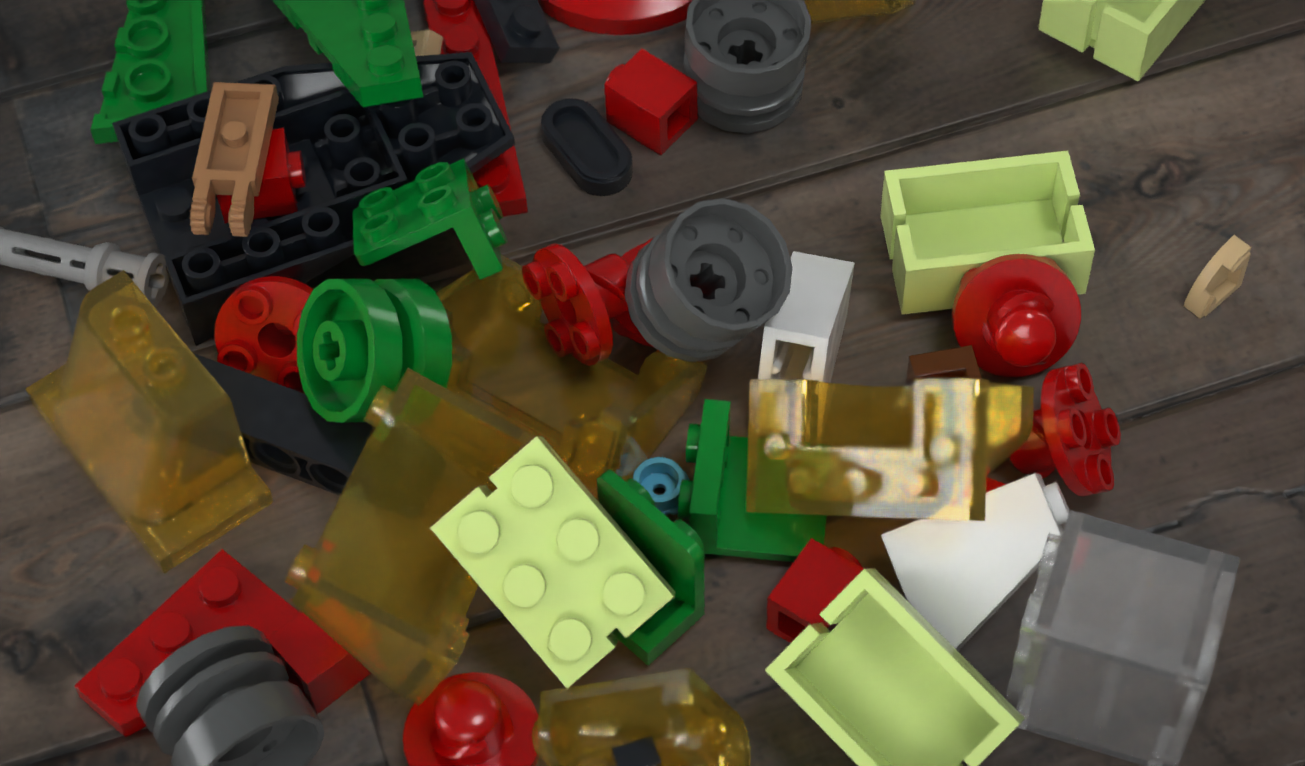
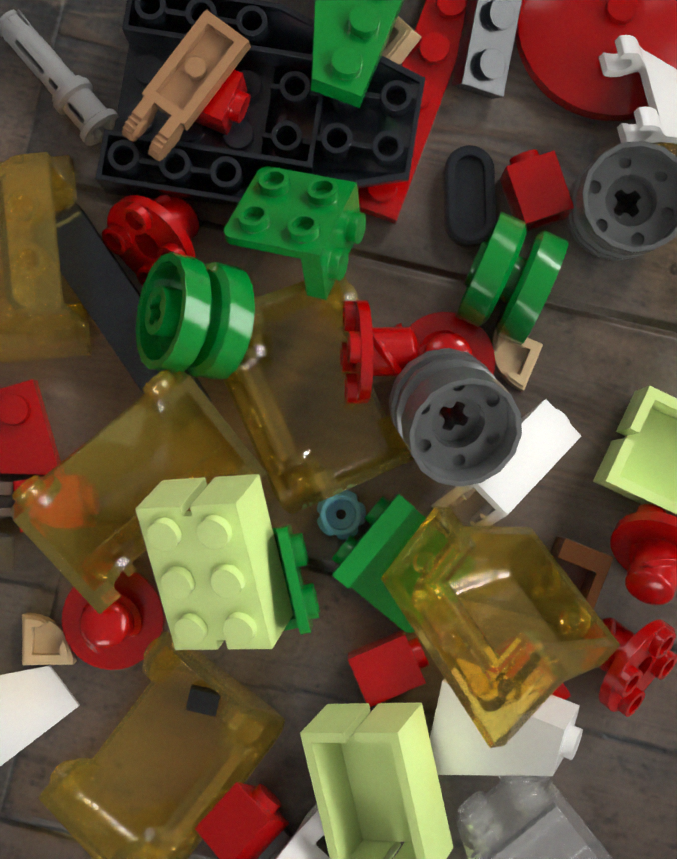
camera: 35 degrees right, 30 degrees up
(672, 168) = (512, 279): none -> green wheel

